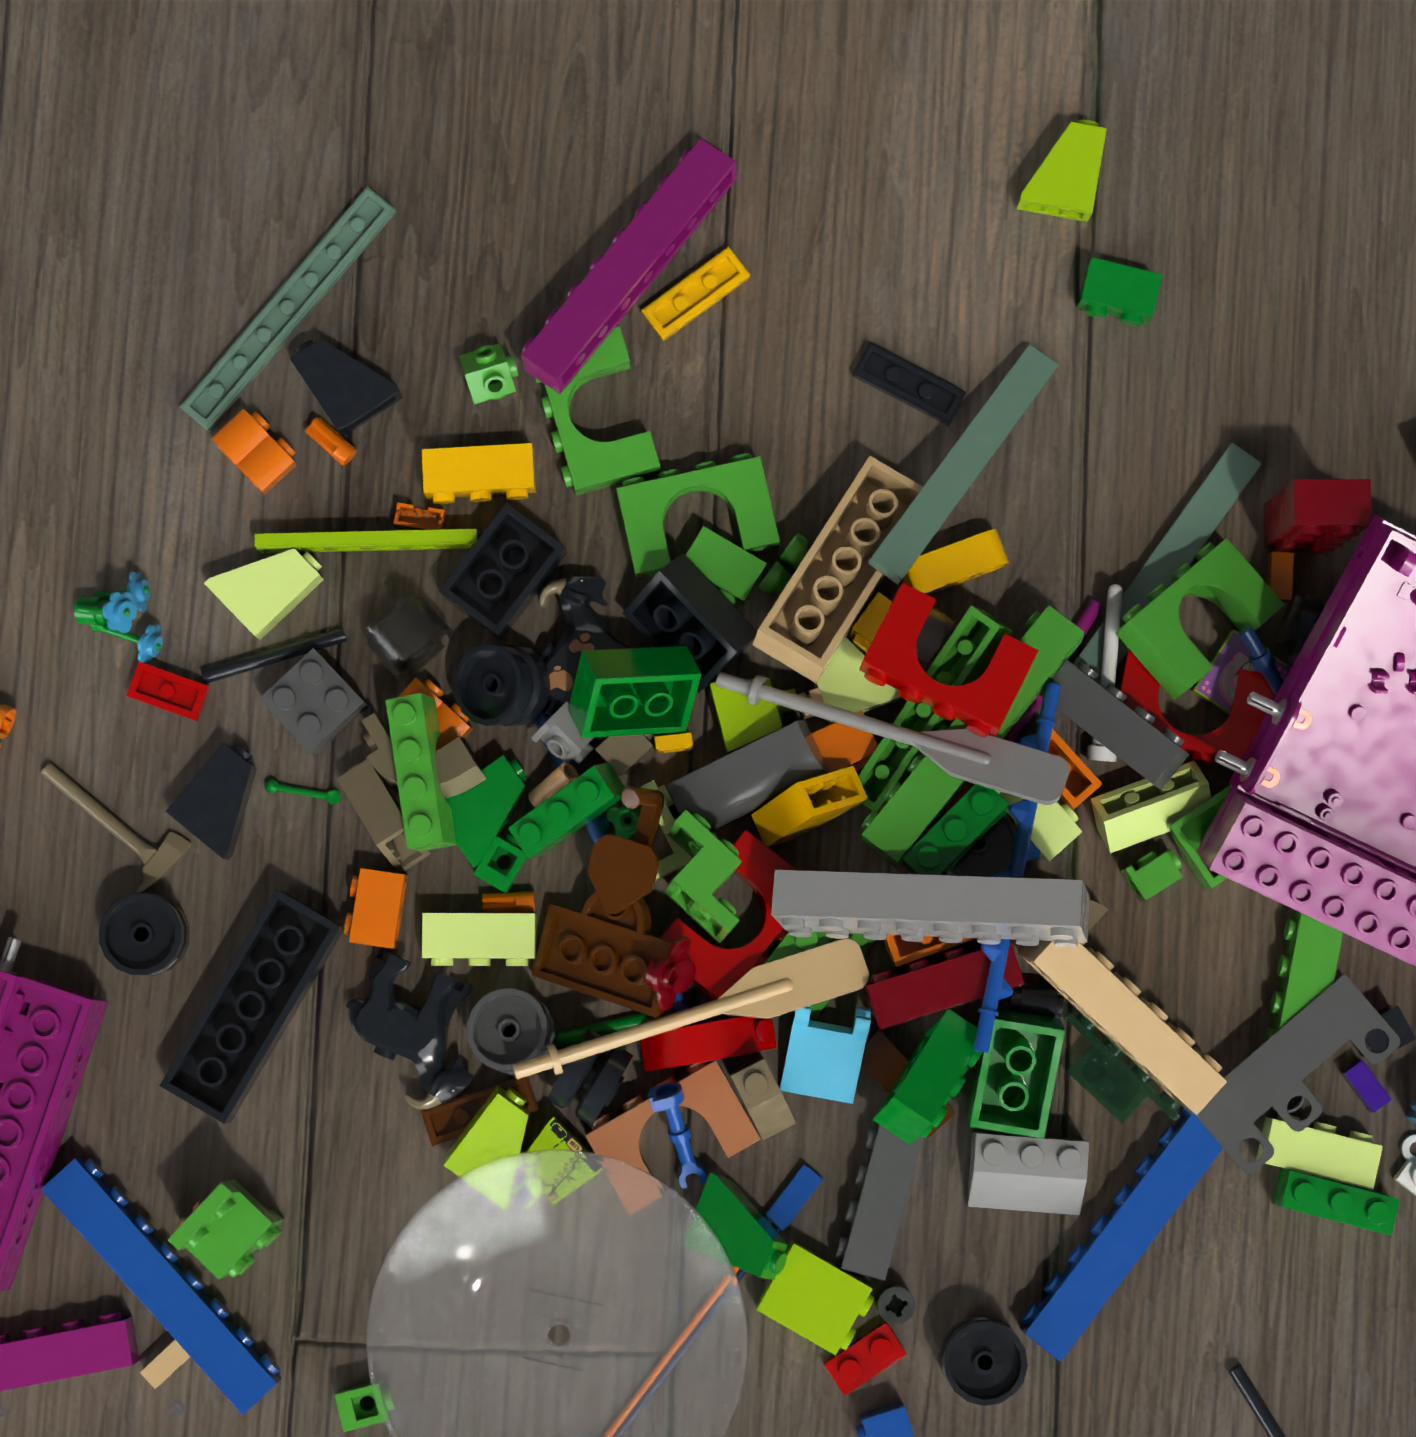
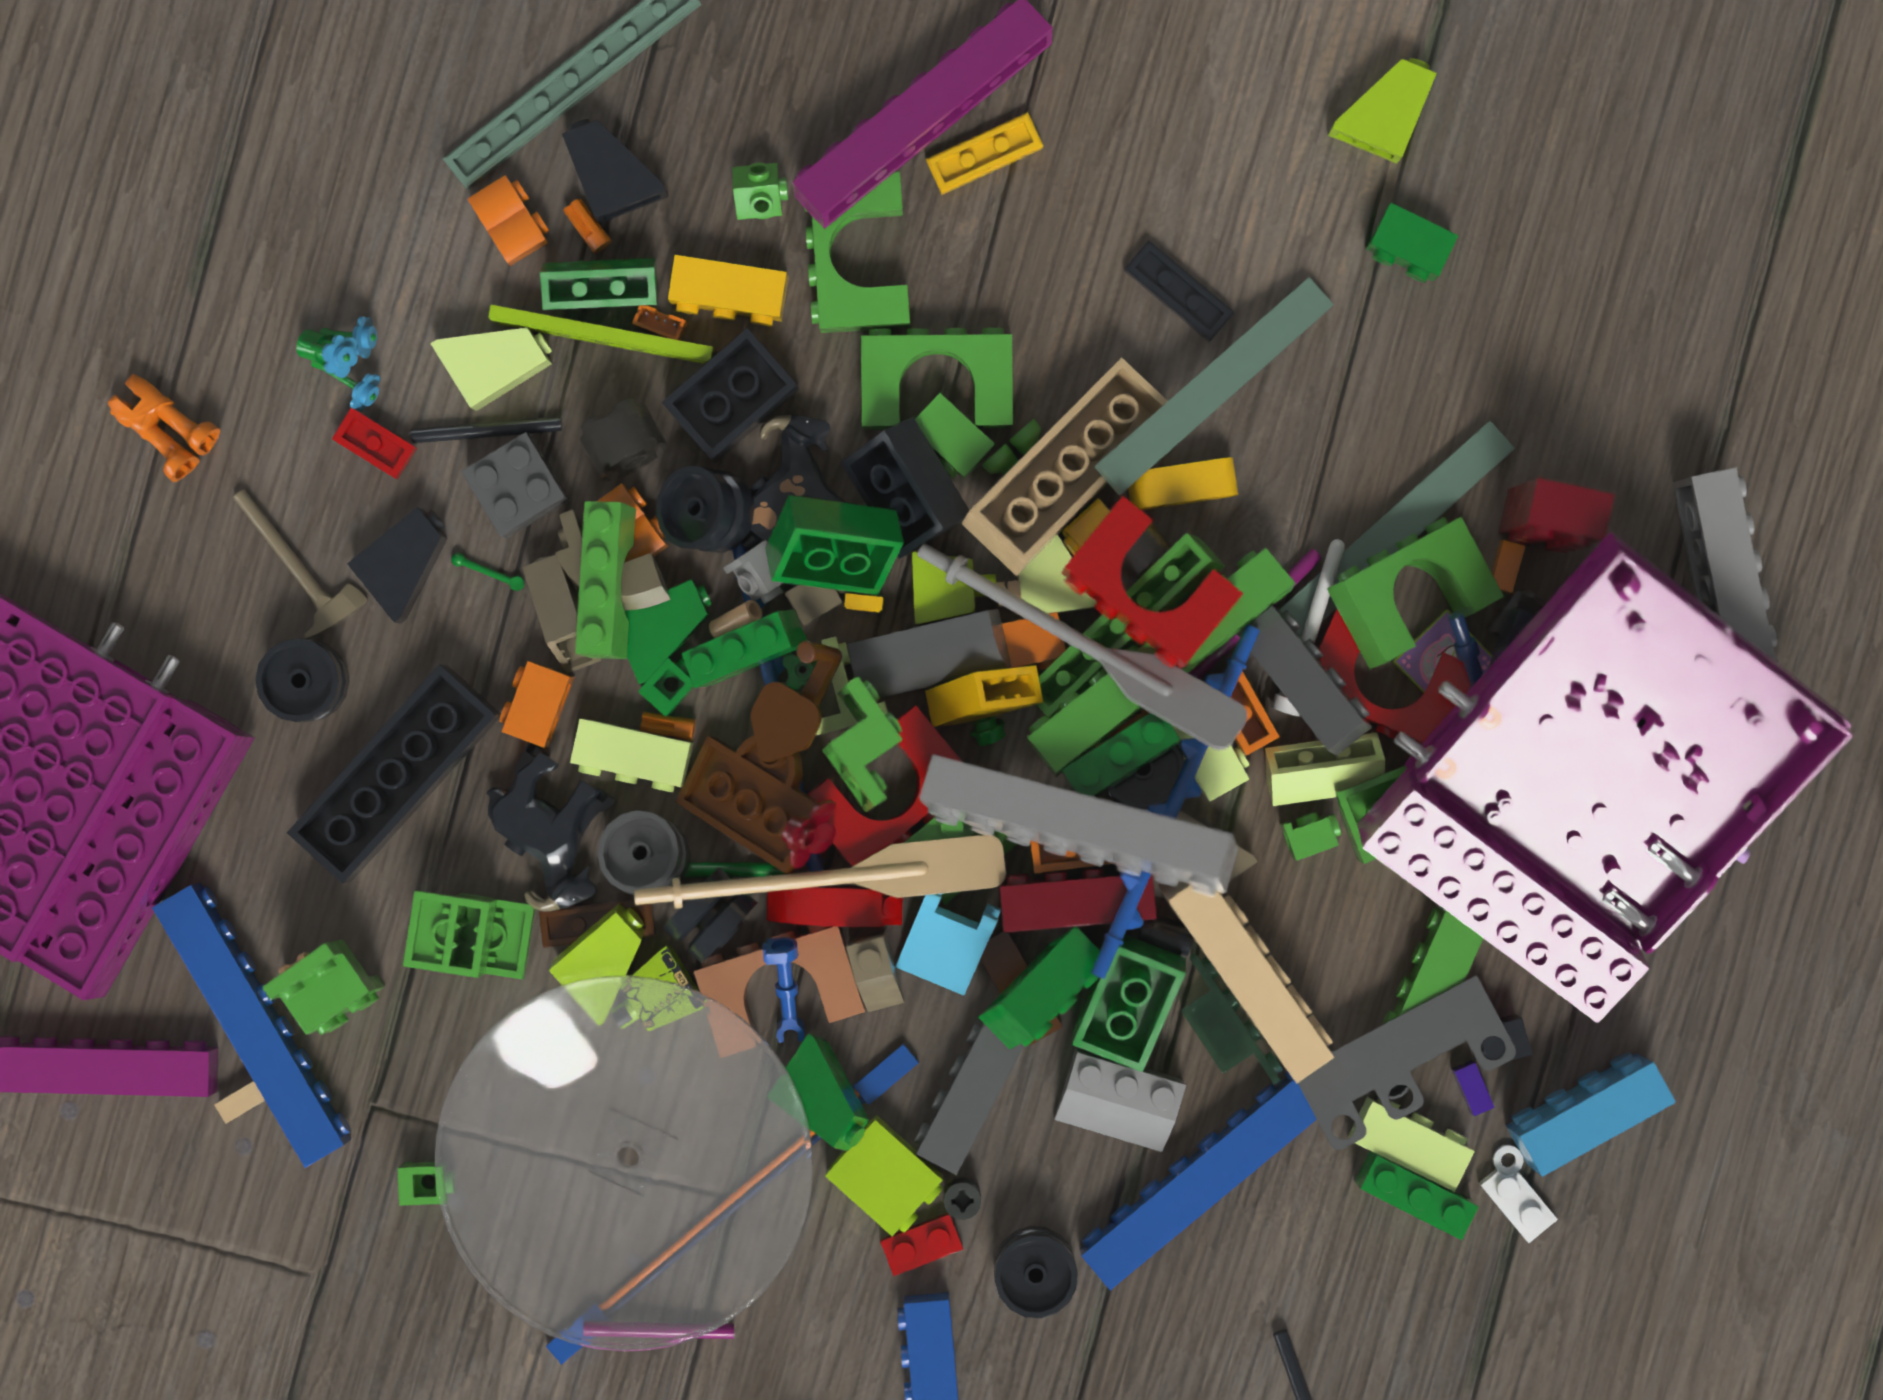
camera: 20 degrees right, 5 degrees up
(354, 492) = (599, 283): none -> green brick
(358, 1148) = (469, 935): none -> bright green bracket
(820, 840) = (988, 730): none -> green plate

